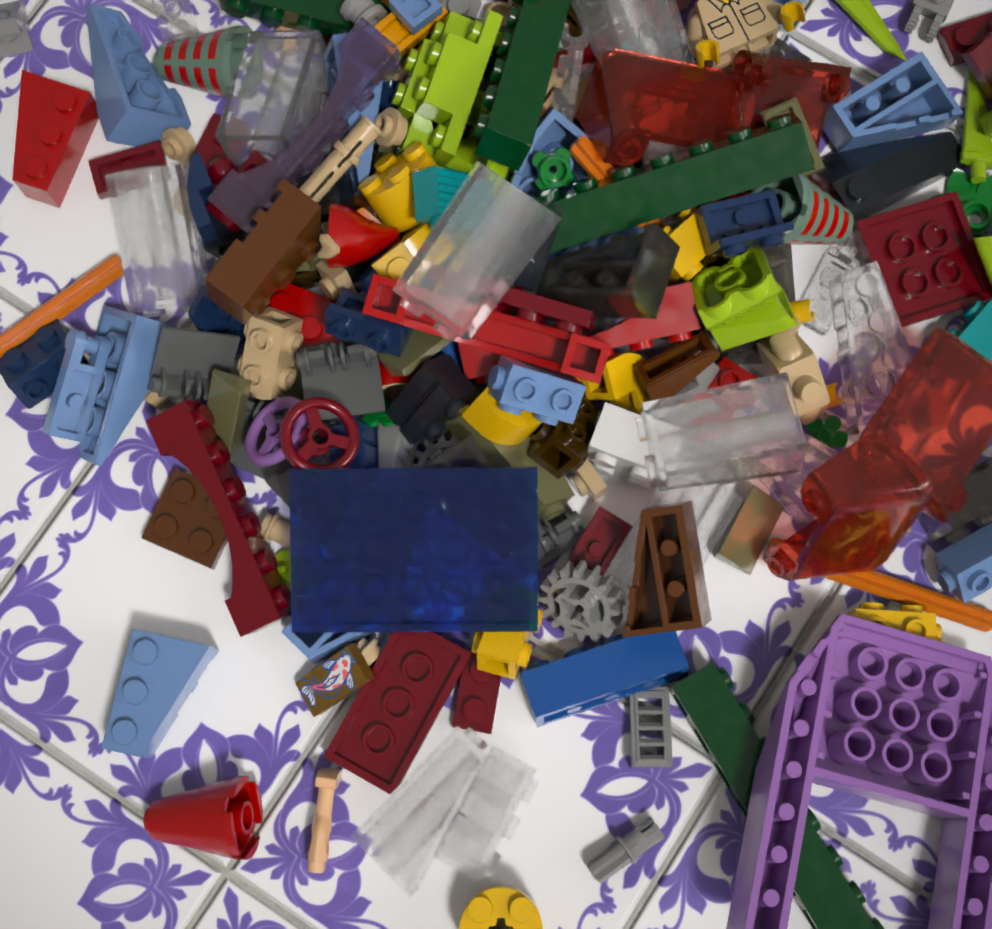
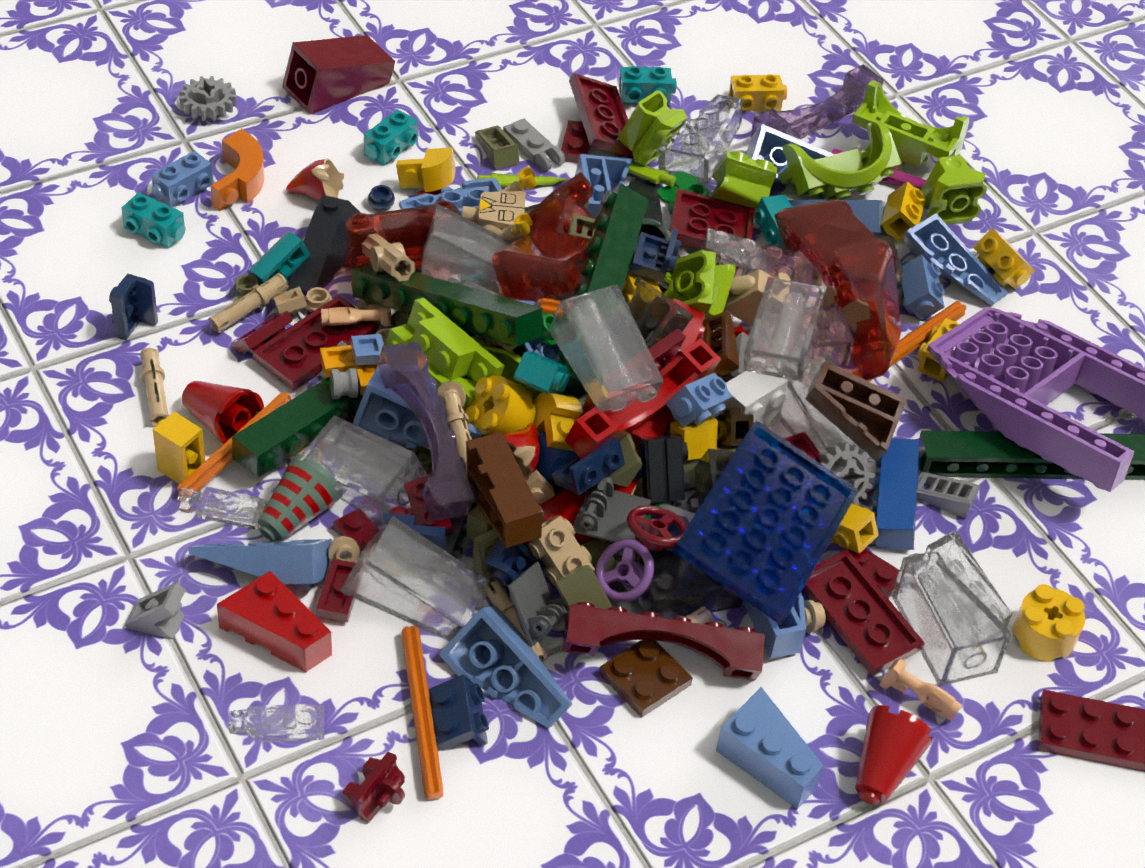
camera: 70 degrees left, 30 degrees down
(76, 386) = (499, 690): medium blue plate -> none
(334, 679) = (823, 636): tile -> none
(625, 850) = (1023, 540): light grey axle -> none

